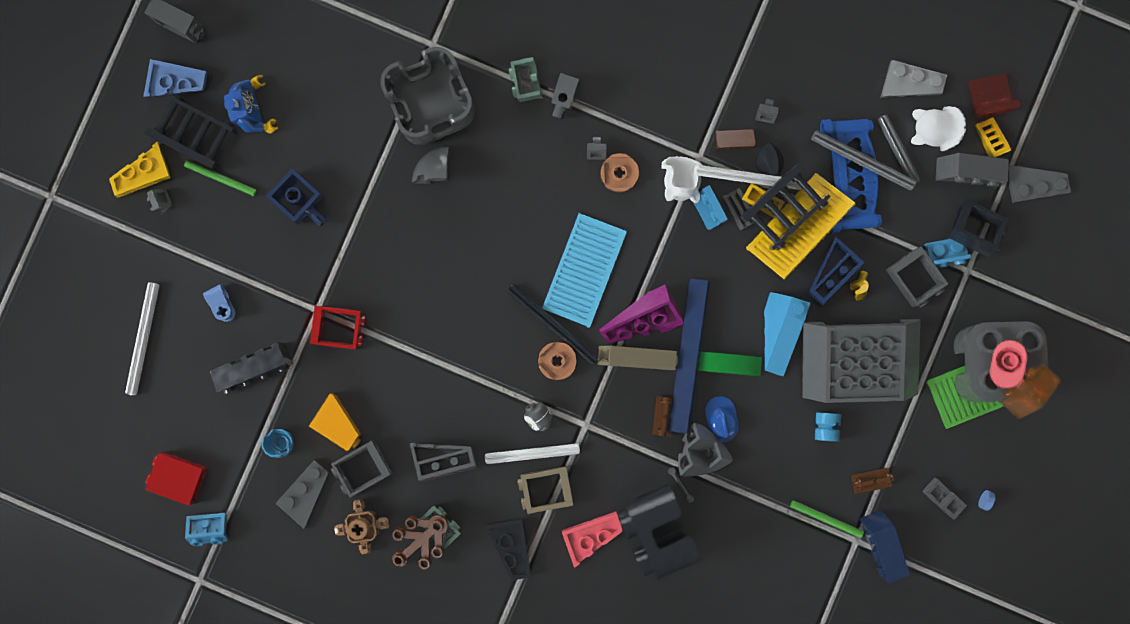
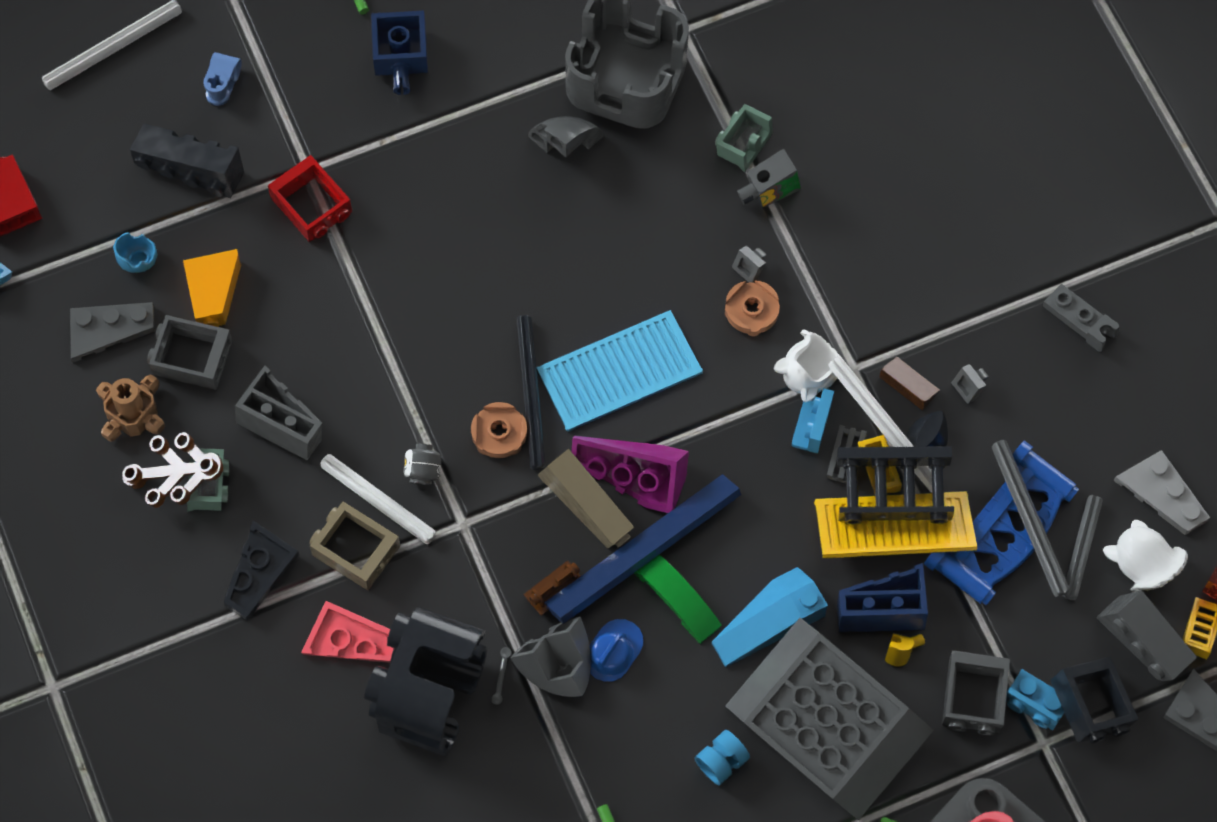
camera: 40 degrees right, 20 degrees down
(787, 21) = (1081, 317): none -> dark grey plate

